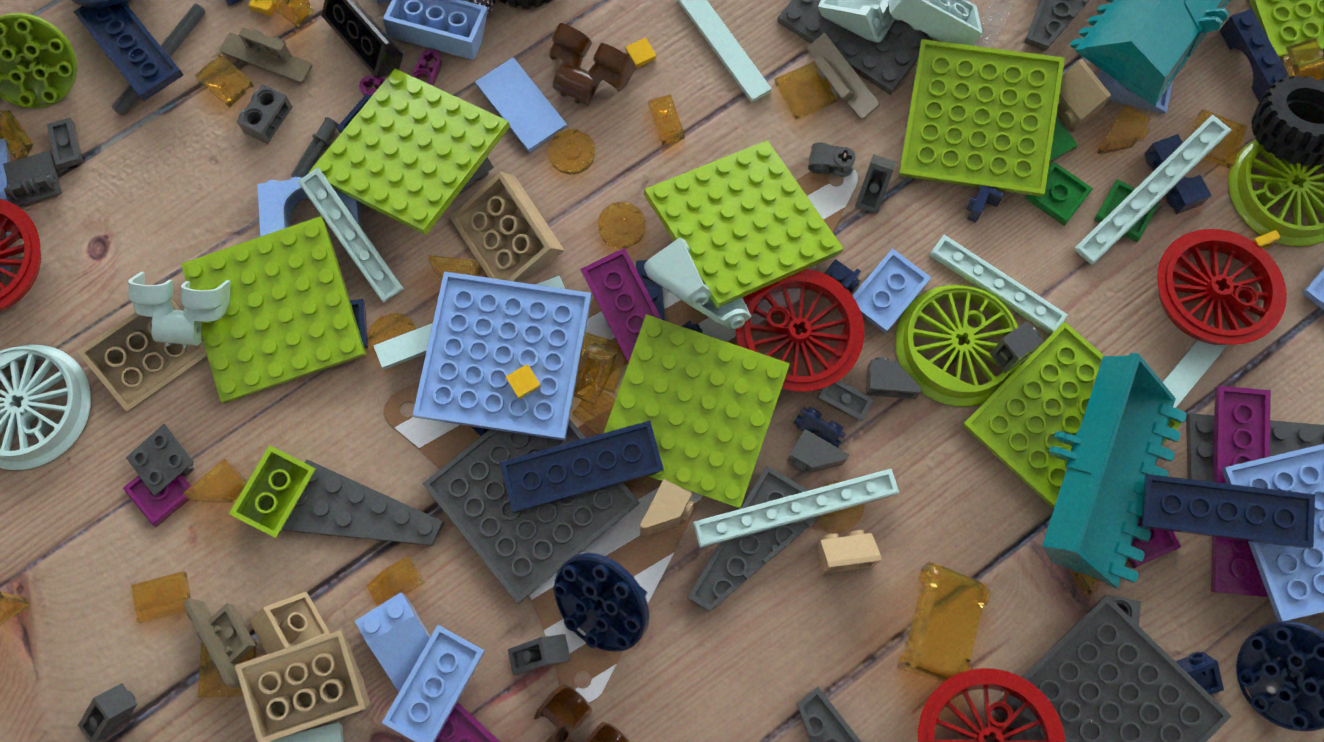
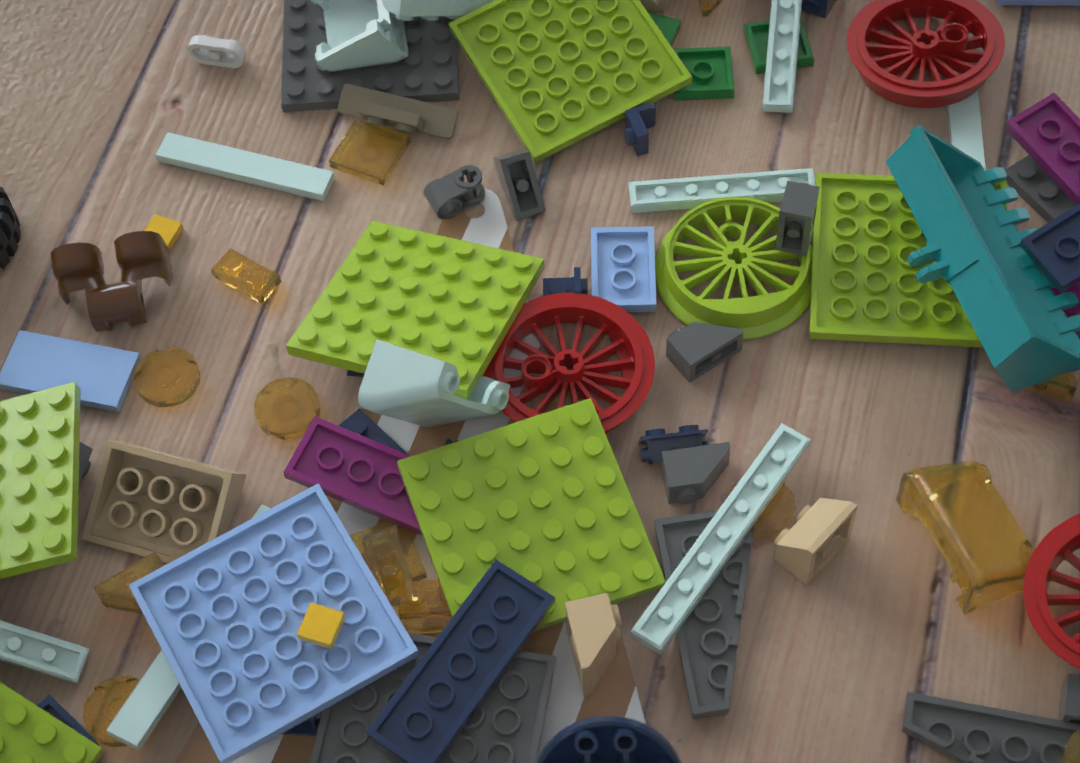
camera: 35 degrees left, 15 degrees down
(846, 400) = (676, 398): dark grey plate -> none

